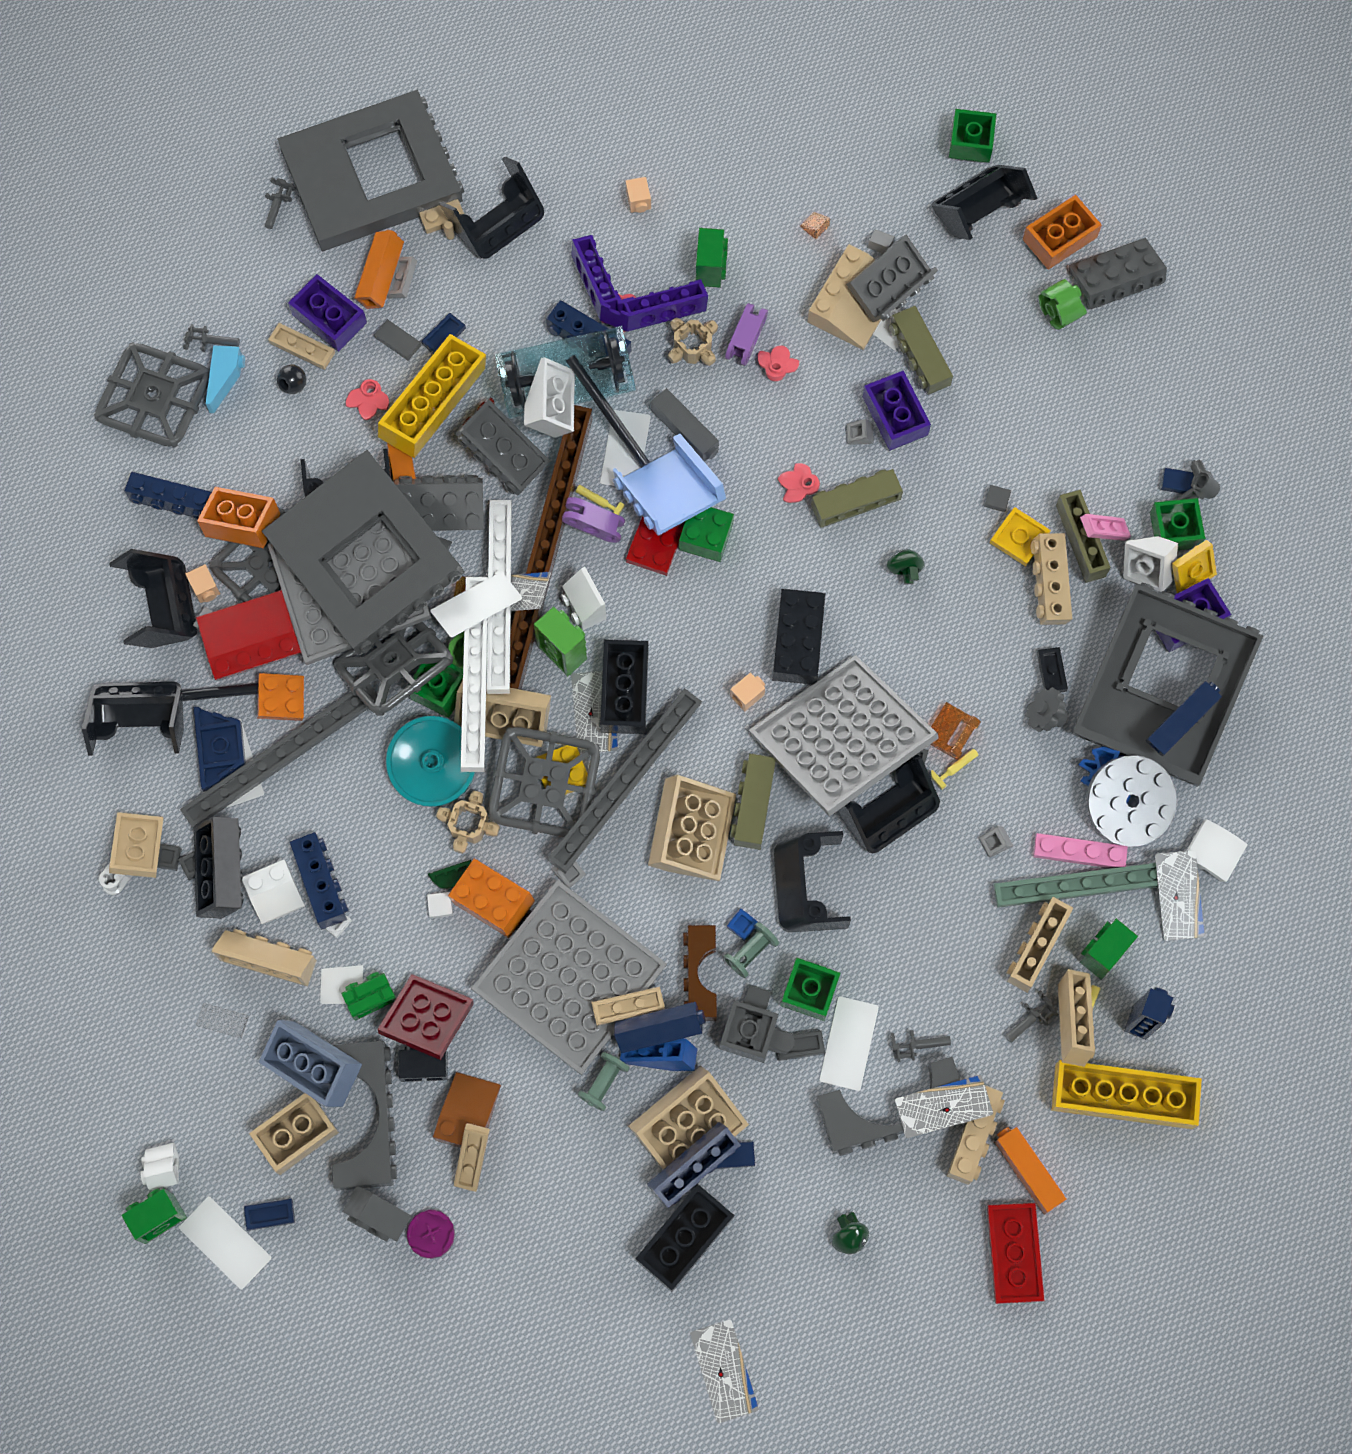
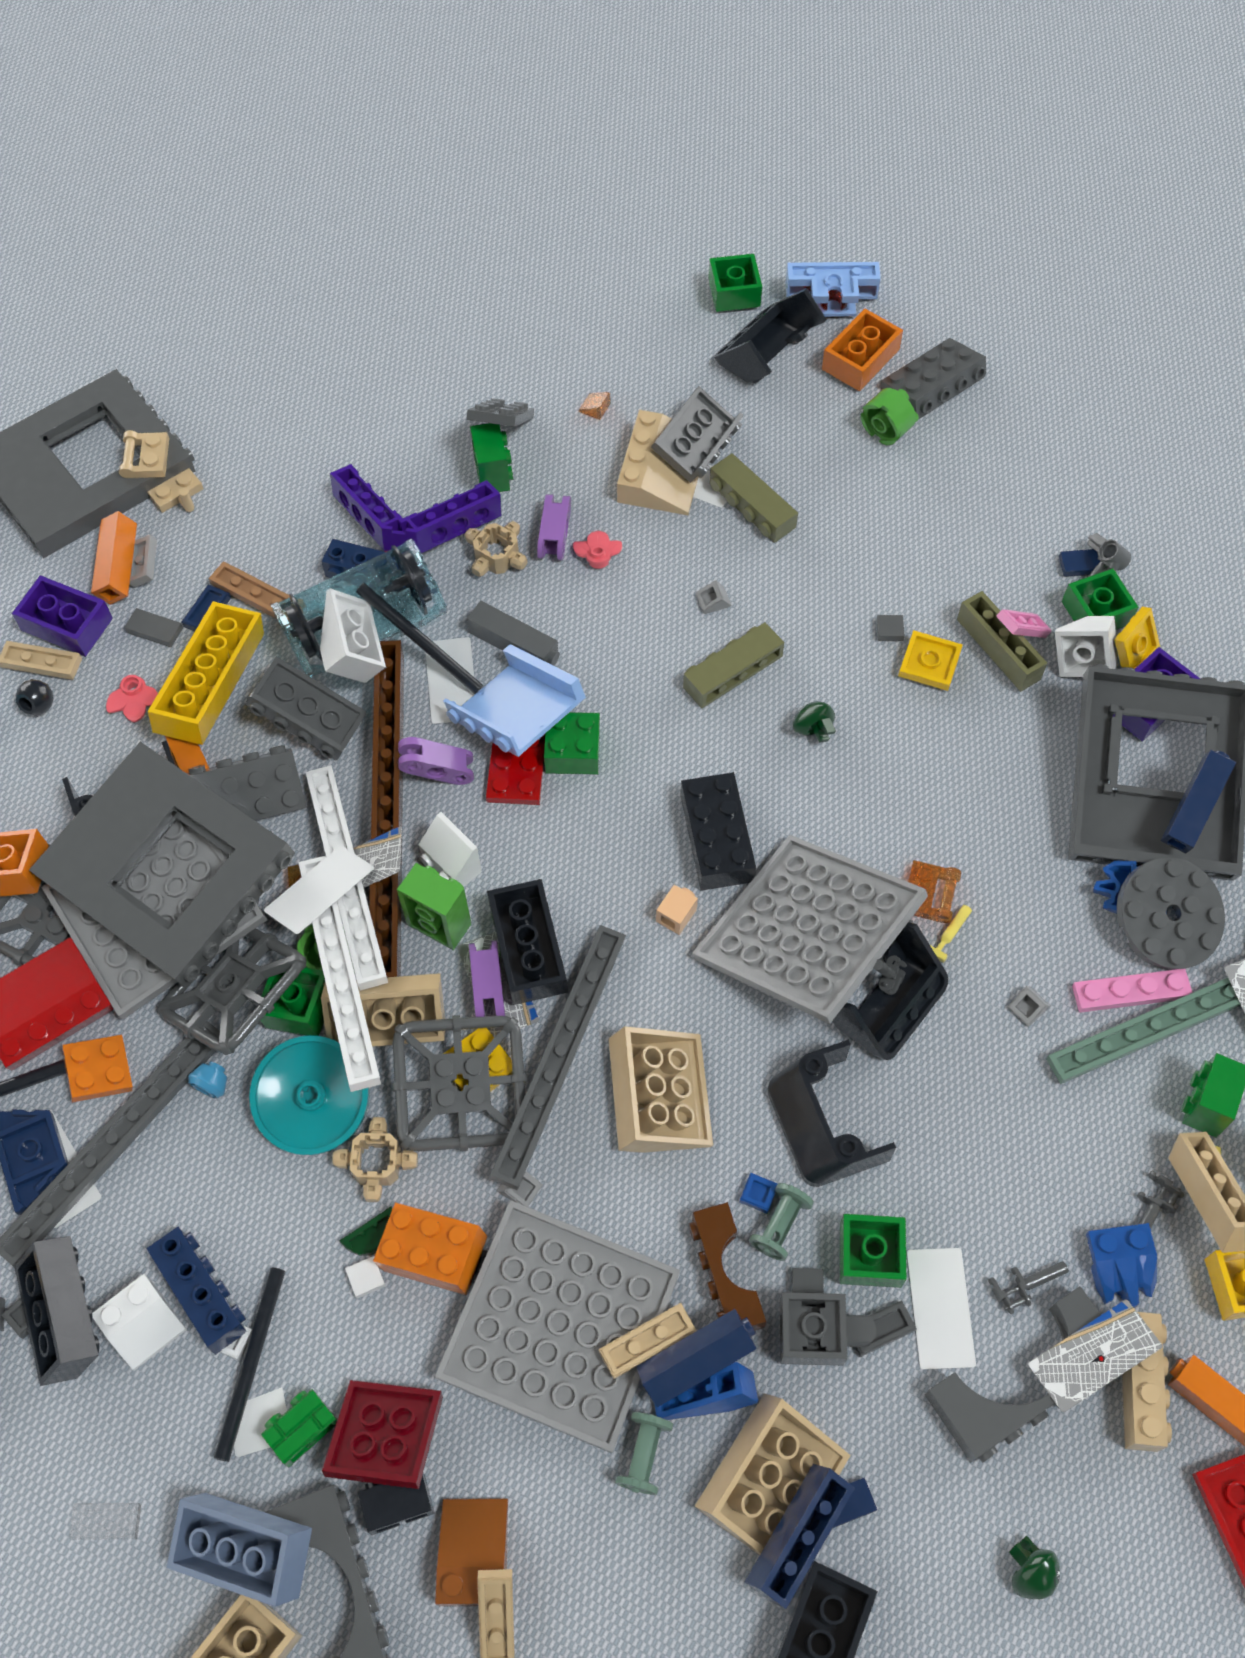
camera: 15 degrees left, 10 degrees down
(265, 957) = (145, 1414): tan slope -> none
(344, 942) = (249, 1365): none -> black piece
(360, 728) = (209, 1079): none -> dark azure cone
(430, 182) = (152, 455): none -> tan plate
(483, 327) = (246, 588): none -> medium nougat plate
(504, 222) = (249, 480): black windscreen -> none
(586, 708) = (486, 978): none -> medium lavender piece
(599, 500) = (462, 743): light yellow piece -> none
(638, 195) = (391, 418): light nougat brick -> none
(729, 219) = (498, 412): none -> dark grey plate
(754, 801) = (726, 1037): olive brick -> none
(795, 483) = (660, 667): coral plate -> none
(880, 241) = (670, 404): light grey slope -> none
(894, 790) = (891, 974): none -> dark grey piece
(896, 410) = (747, 562): dark purple brick -> none
(993, 1049) = (1123, 1262): none -> blue plate
(1039, 945) = (1131, 1114): tan brick -> none
(1047, 710) = (1034, 837): dark grey plant -> none
(1051, 579) = (985, 694): tan brick -> none
(1052, 669) = (1021, 794): black plate -> none
(1058, 161) = (835, 284): none -> light blue piece

